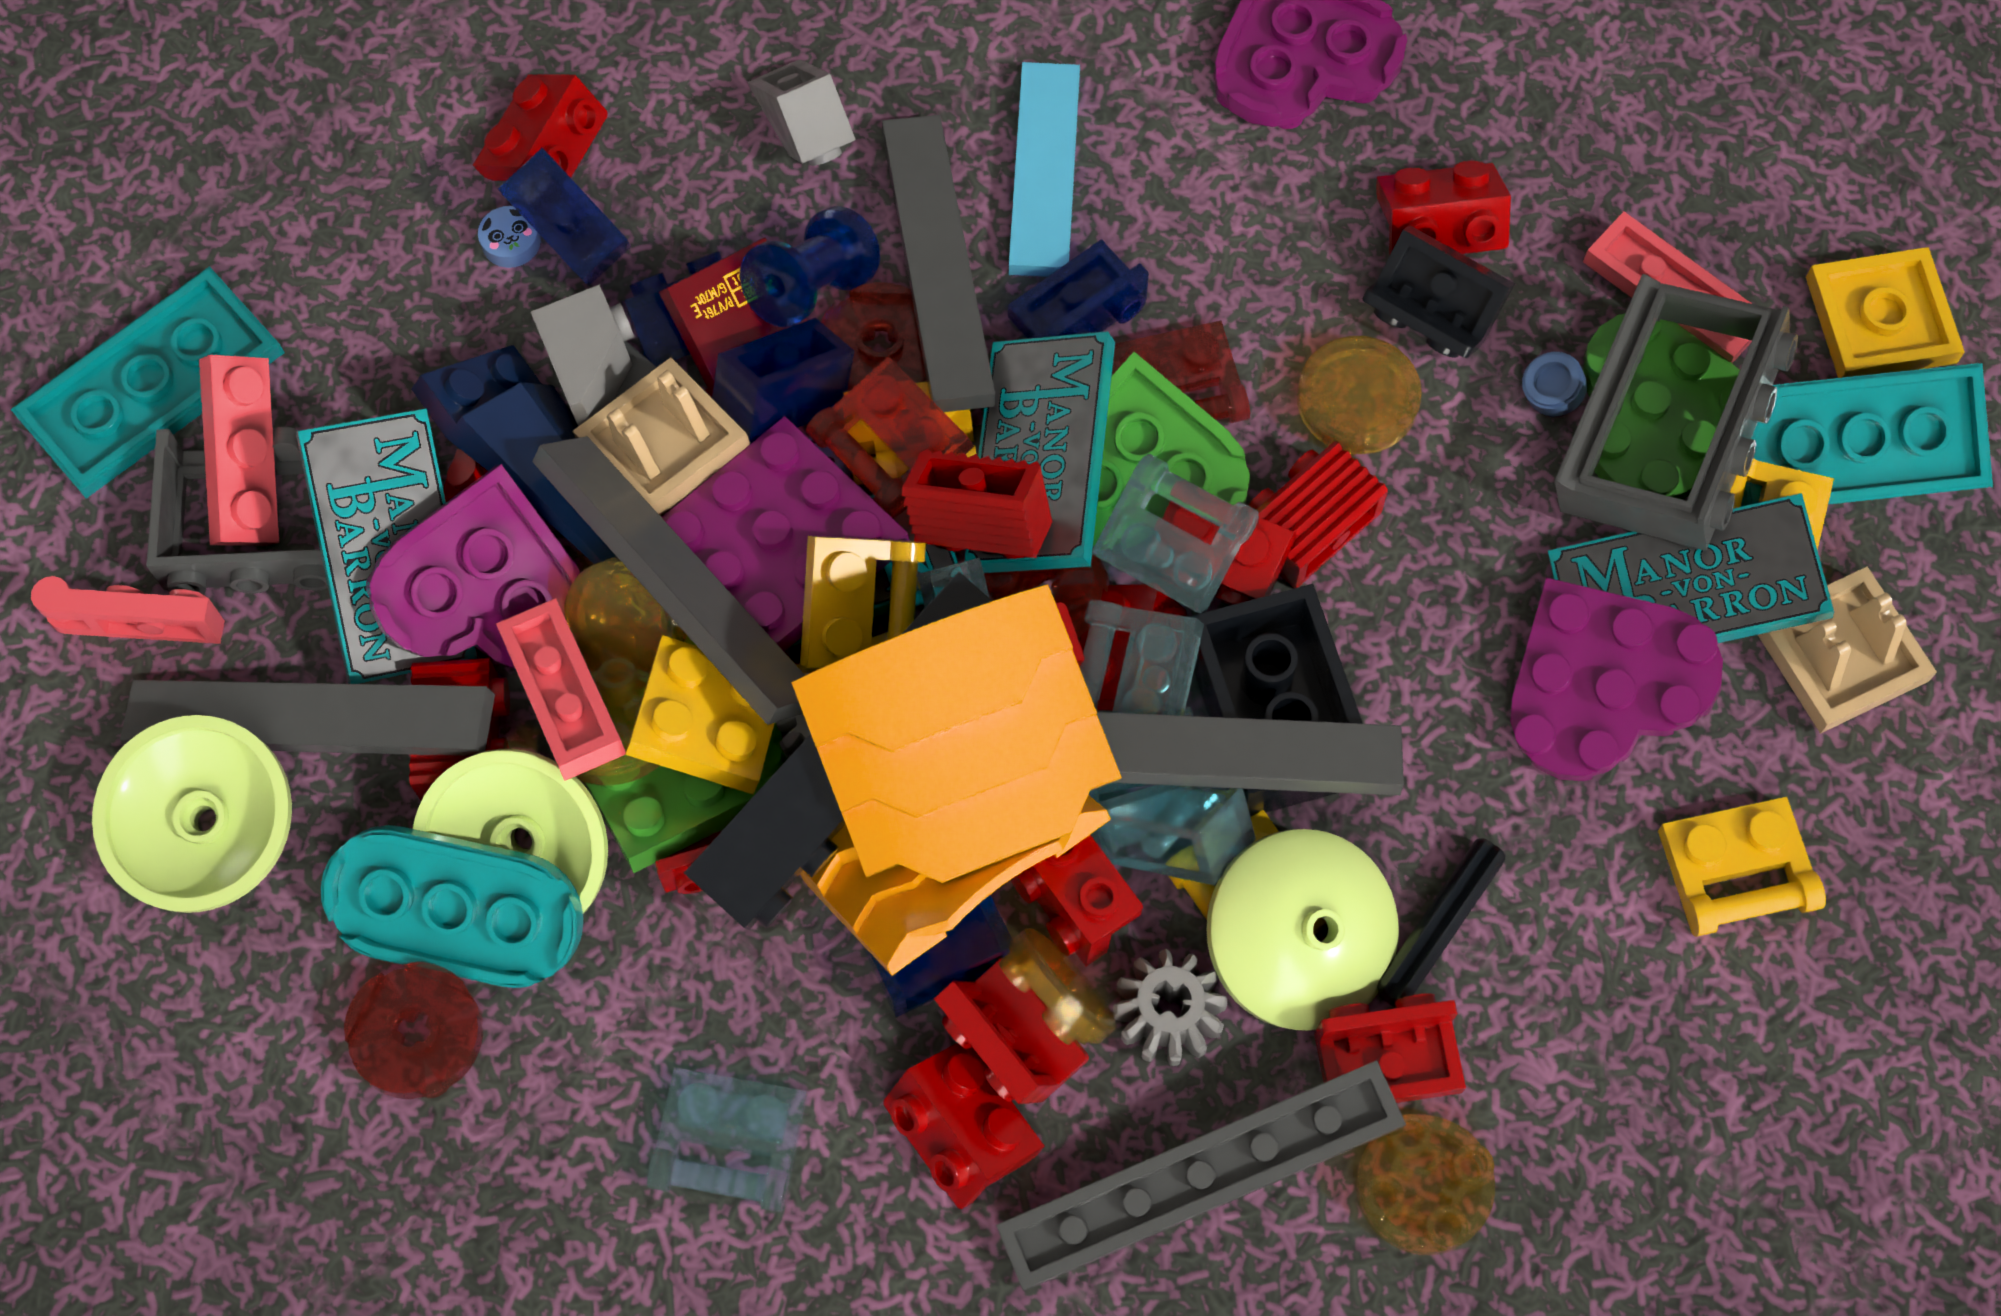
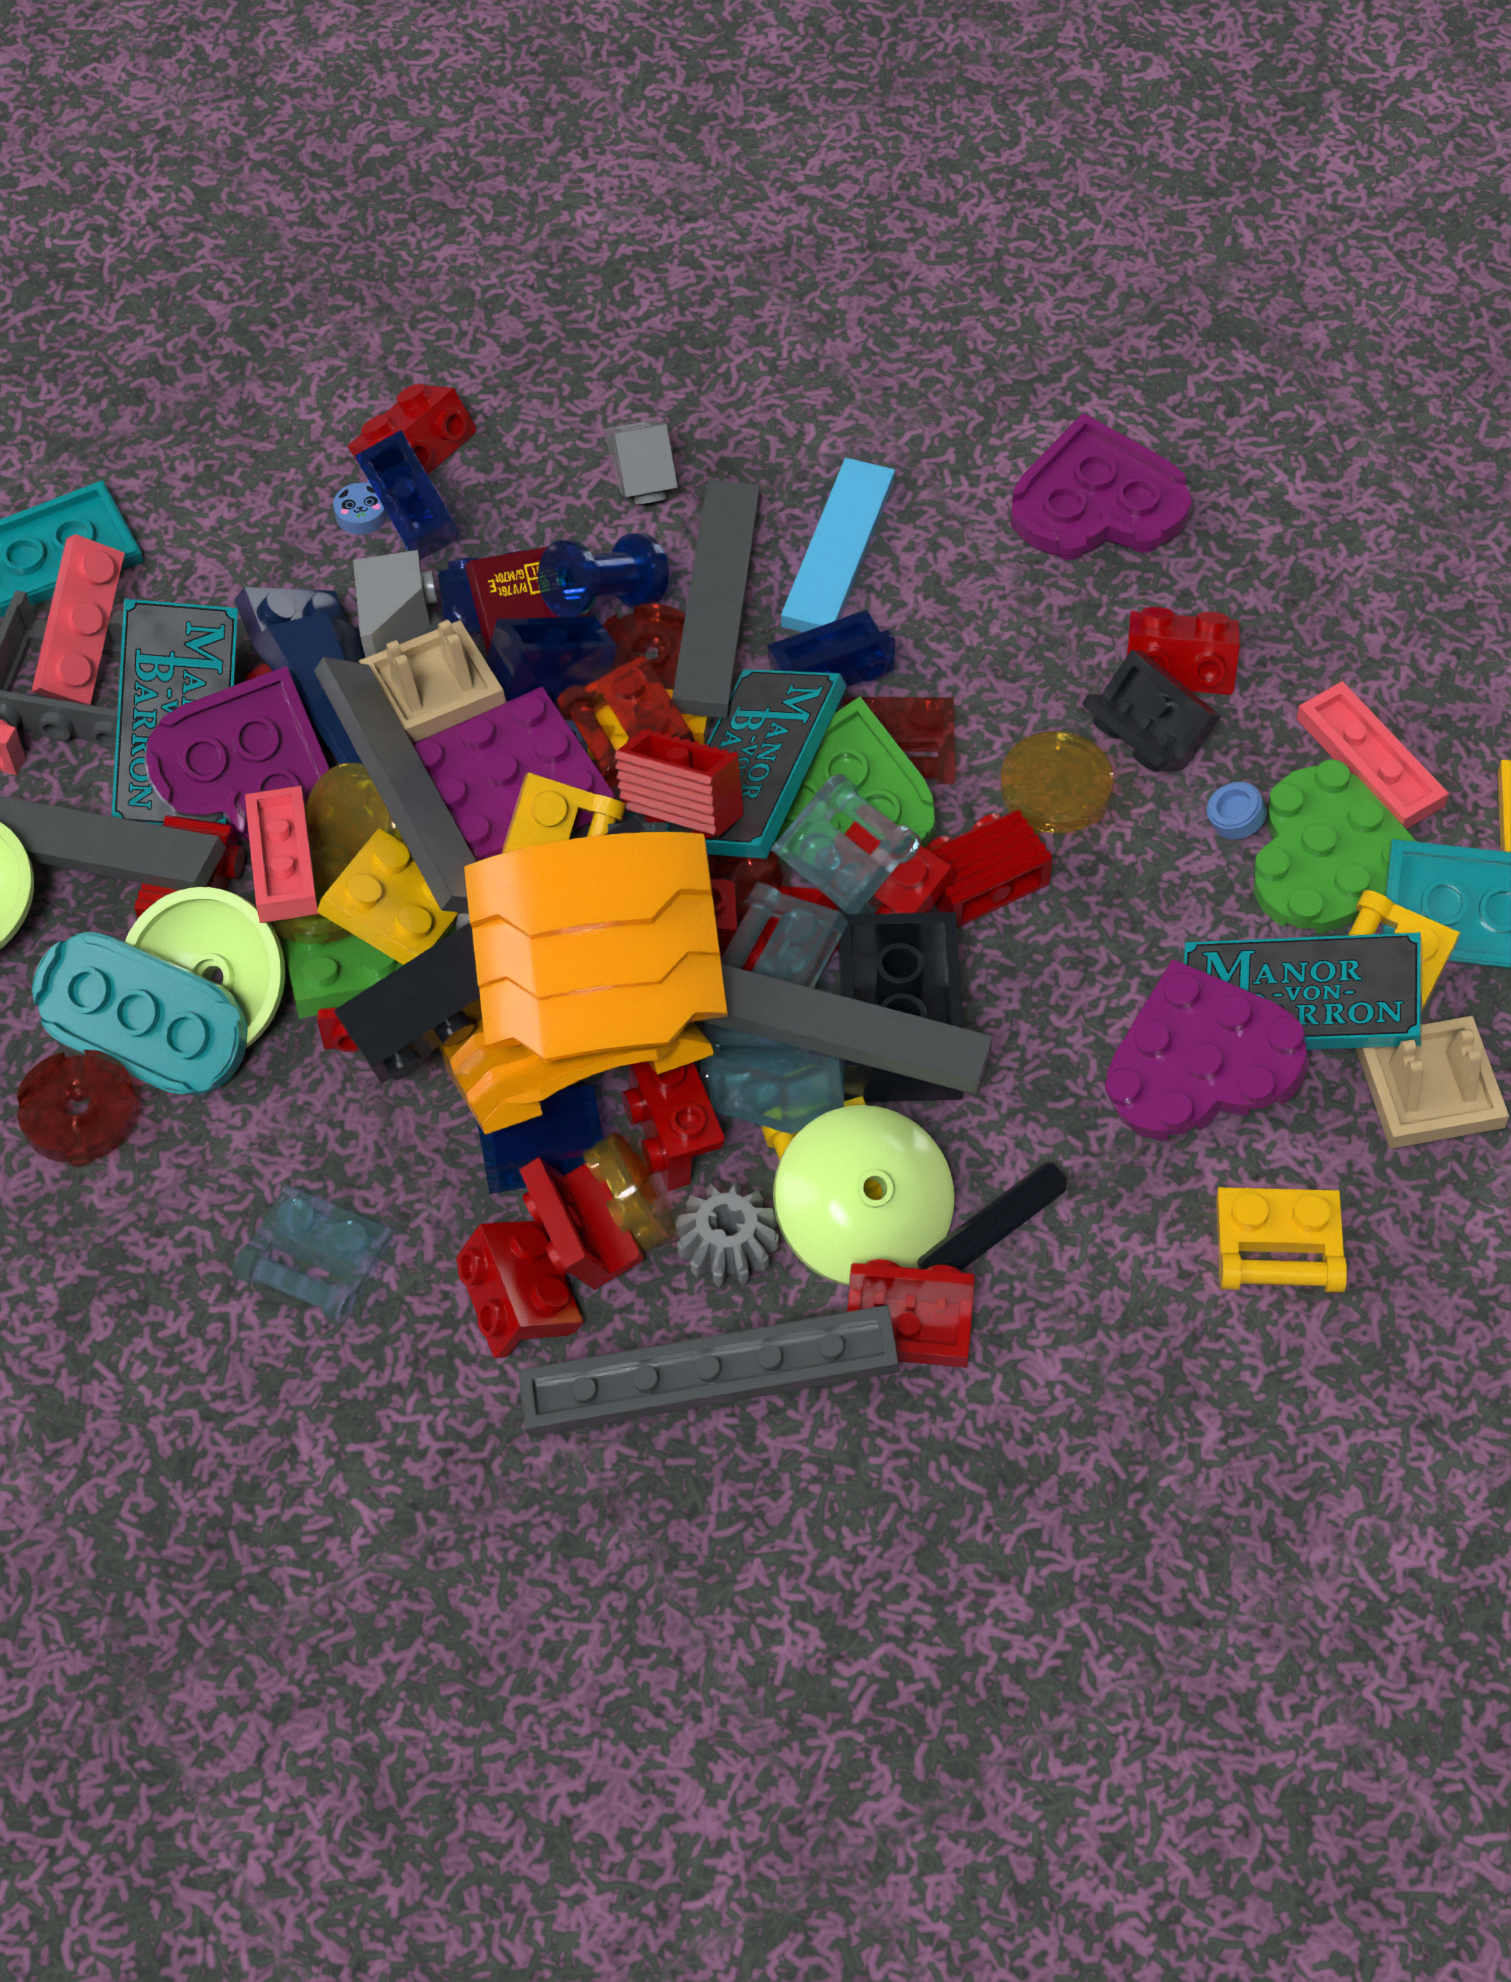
camera: 15 degrees right, 10 degrees down
(1426, 1185) = (910, 1433): clear yellow tile -> none
(1731, 447) = (1365, 875): dark grey window -> none

